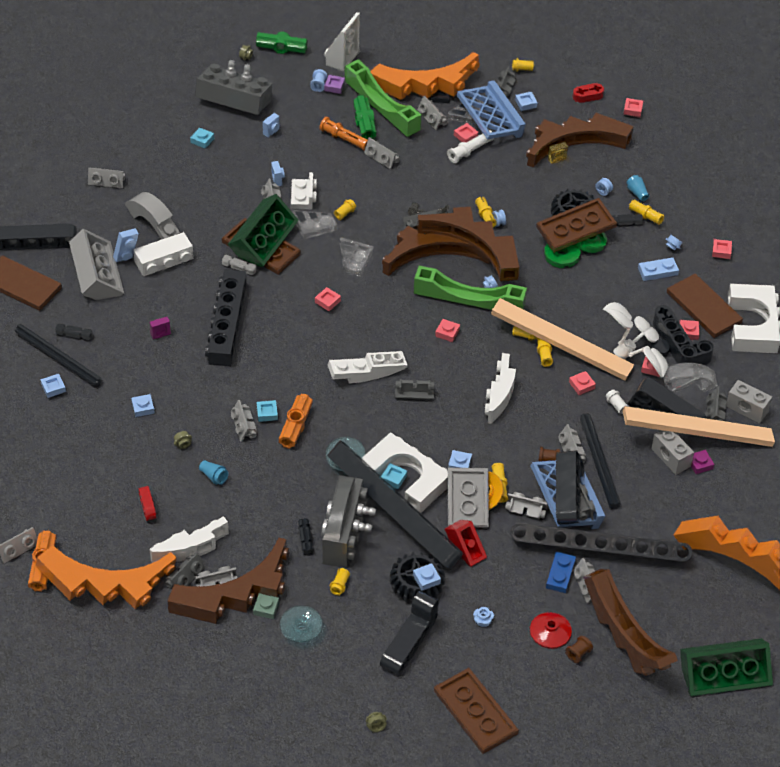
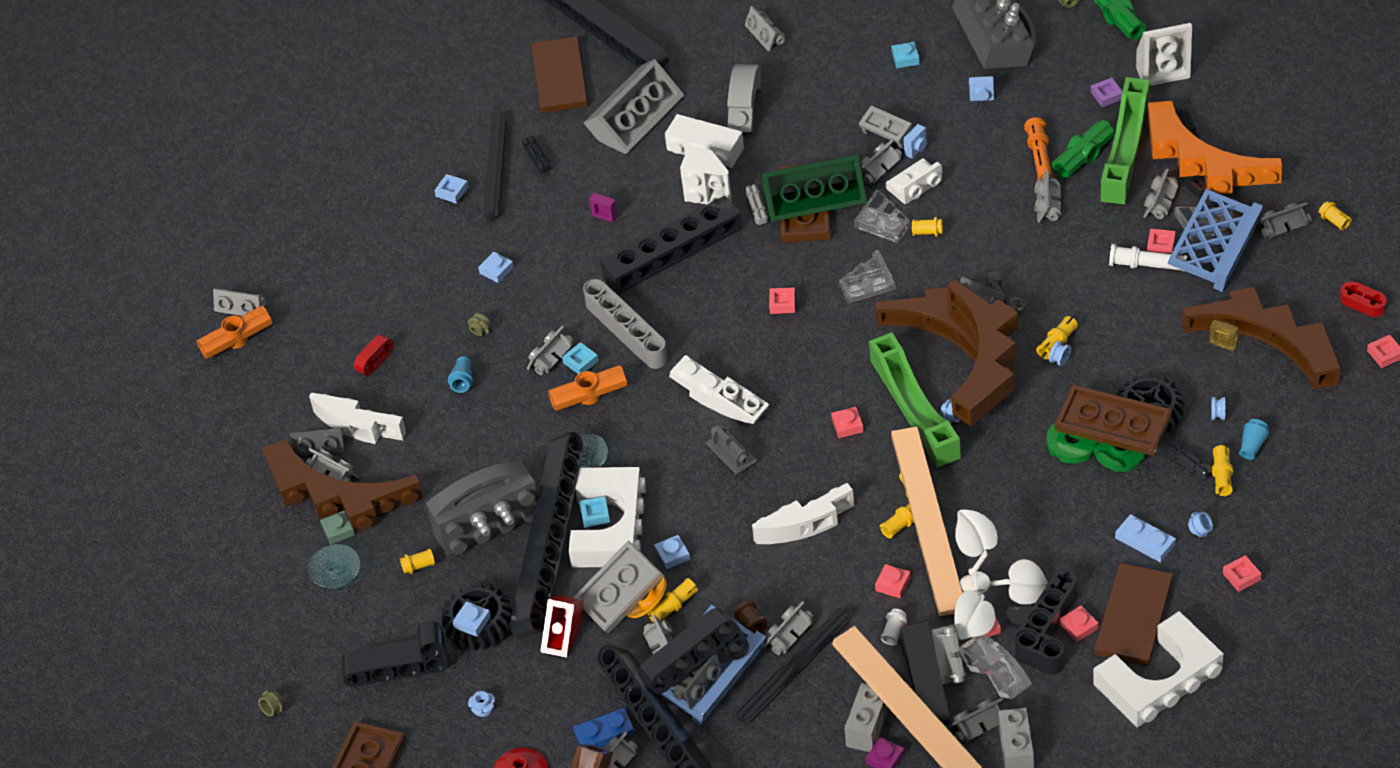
camera: 60 degrees right, 0 degrees up
(105, 585) = (239, 394): orange arch -> none
(125, 244) = (674, 102): light blue plate -> none
(201, 268) = (704, 177): none -> white slope
(253, 175) = (885, 125): none -> light grey hinge
(264, 374) = (625, 323): none -> light grey beam
(319, 78) = (1095, 76): light blue bush -> none
(526, 101) = (1277, 256): light blue plate -> none
(665, 379) = (947, 654): none -> light grey hinge

